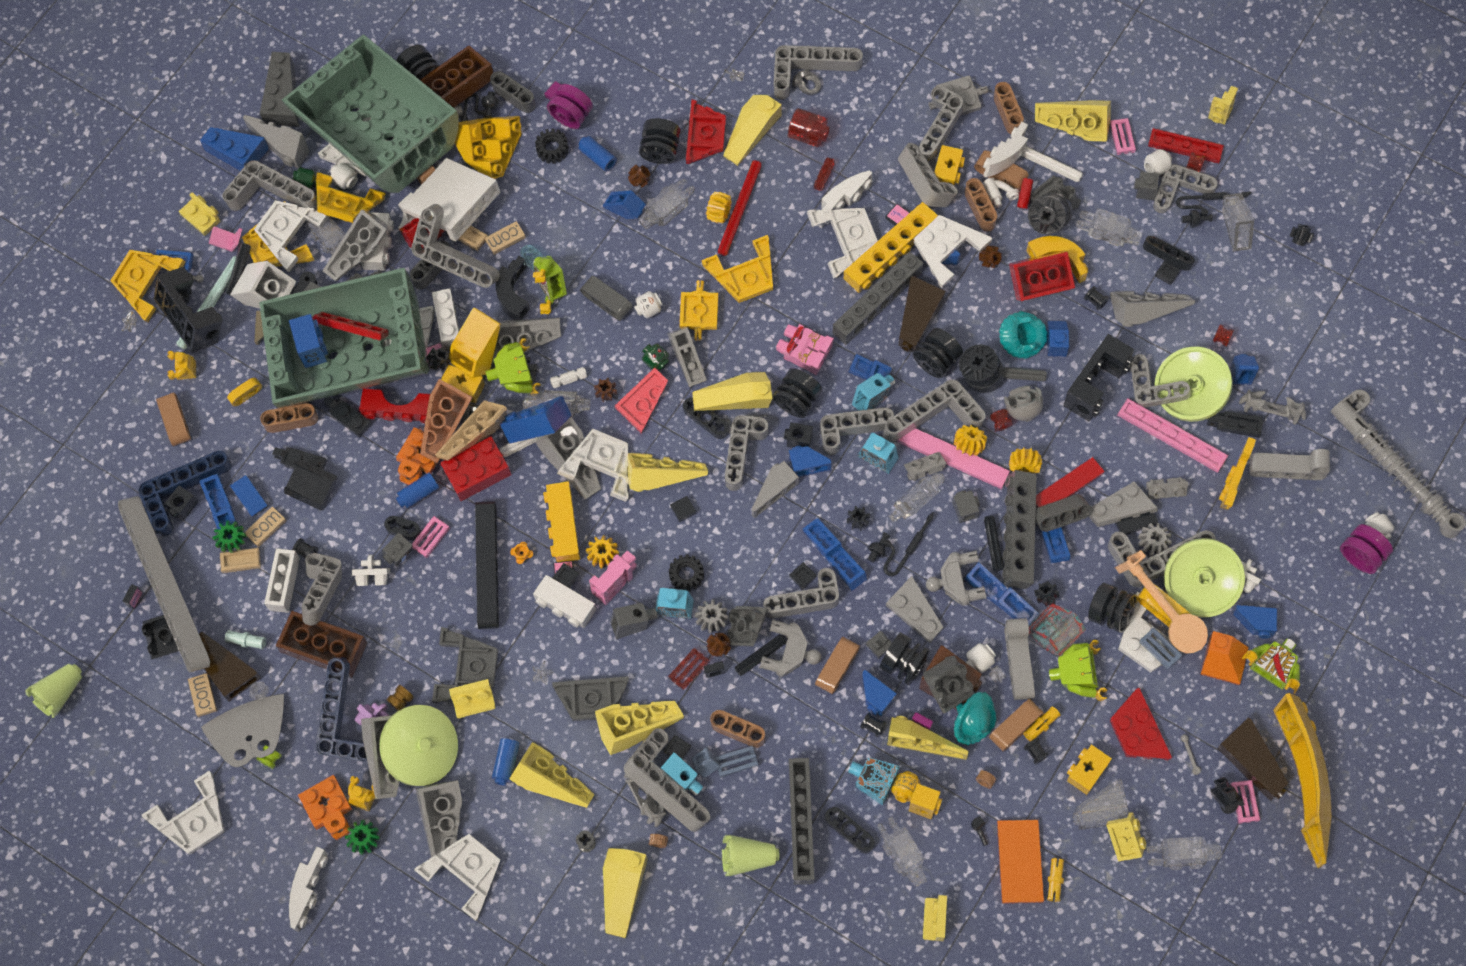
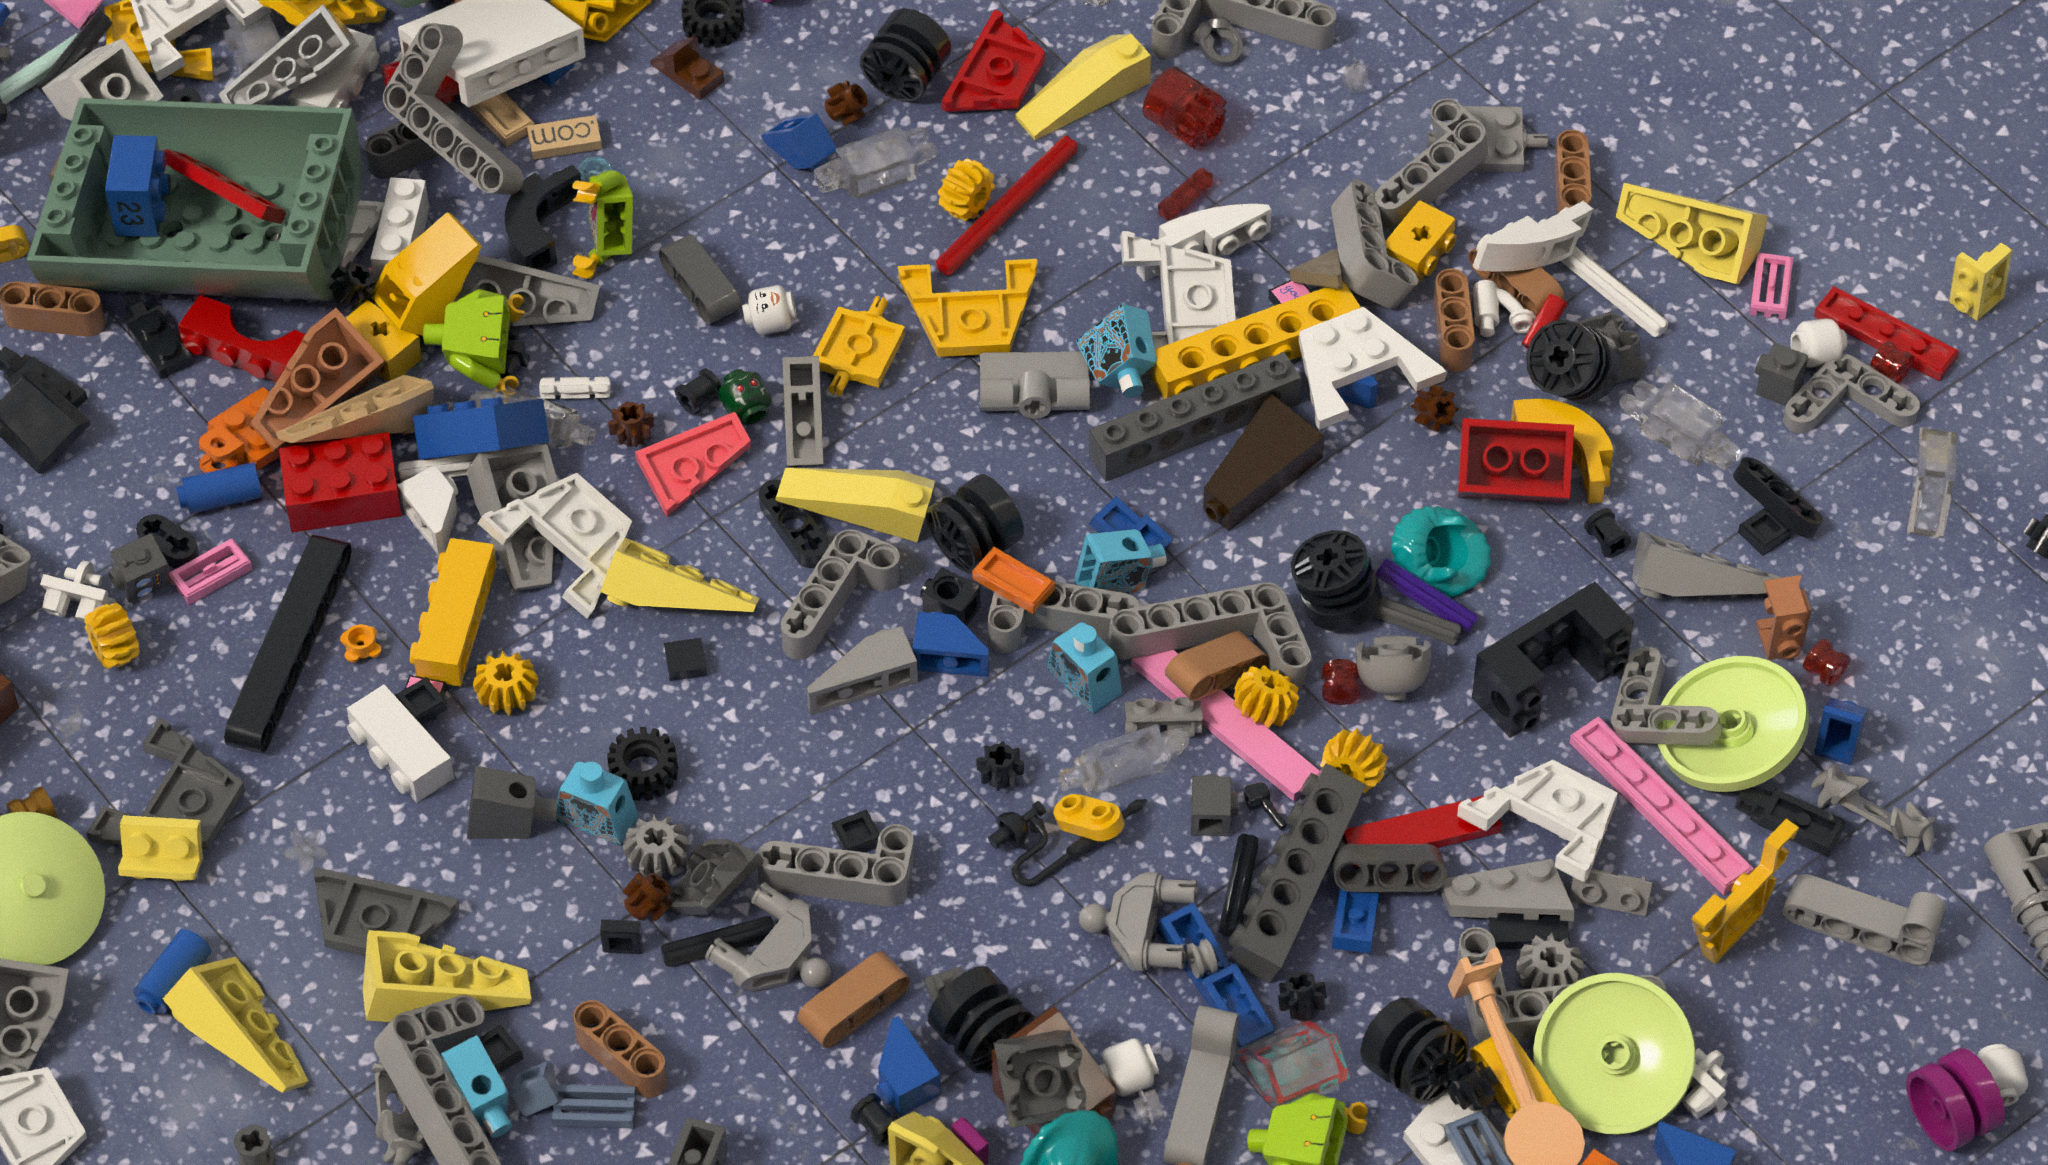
camera: 15 degrees right, 15 degrees down
(399, 591) = (111, 635): none -> yellow gear
(525, 466) = (430, 505): none -> white slope
(550, 179) = (688, 68): none -> reddish brown slope
(597, 153) = (788, 49): blue brick -> none
(614, 577) = (505, 725): bright pink hips -> none
(630, 360) = (698, 391): none -> black bush
(699, 656) = (571, 920): clear red tile -> none
(791, 302) = (1034, 382): none -> light grey panel
(805, 348) = (1026, 460): bright pink hips -> none
(828, 418) = (1013, 580): none -> orange tile
(829, 274) = (1120, 349): none -> medium azure torso
(835, 554) = (933, 817): blue slope -> none
(881, 82) = (1356, 77): none -> clear plate
(908, 198) = (1320, 271): none -> dark tan tile
(909, 532) = (1088, 817): none -> yellow plate
(915, 610) = (1041, 953): light grey wing -> none
(937, 353) = (1263, 531): black wheel -> none
(941, 432) = (1214, 665): none -> medium nougat beam
(985, 492) = (1257, 795): none -> black hand
(994, 591) = (1201, 958): none -> light grey bush
(1024, 360) = (1425, 594): none -> dark purple axle
(1057, 338) = (1504, 580): blue slope -> none
(1128, 451) = (1557, 801): none -> white wing
(1146, 616) = (1472, 1085): none -> black gear
(1194, 216) = (1853, 452): black piece -> none
(1198, 320) = (1787, 630): none -> nougat window

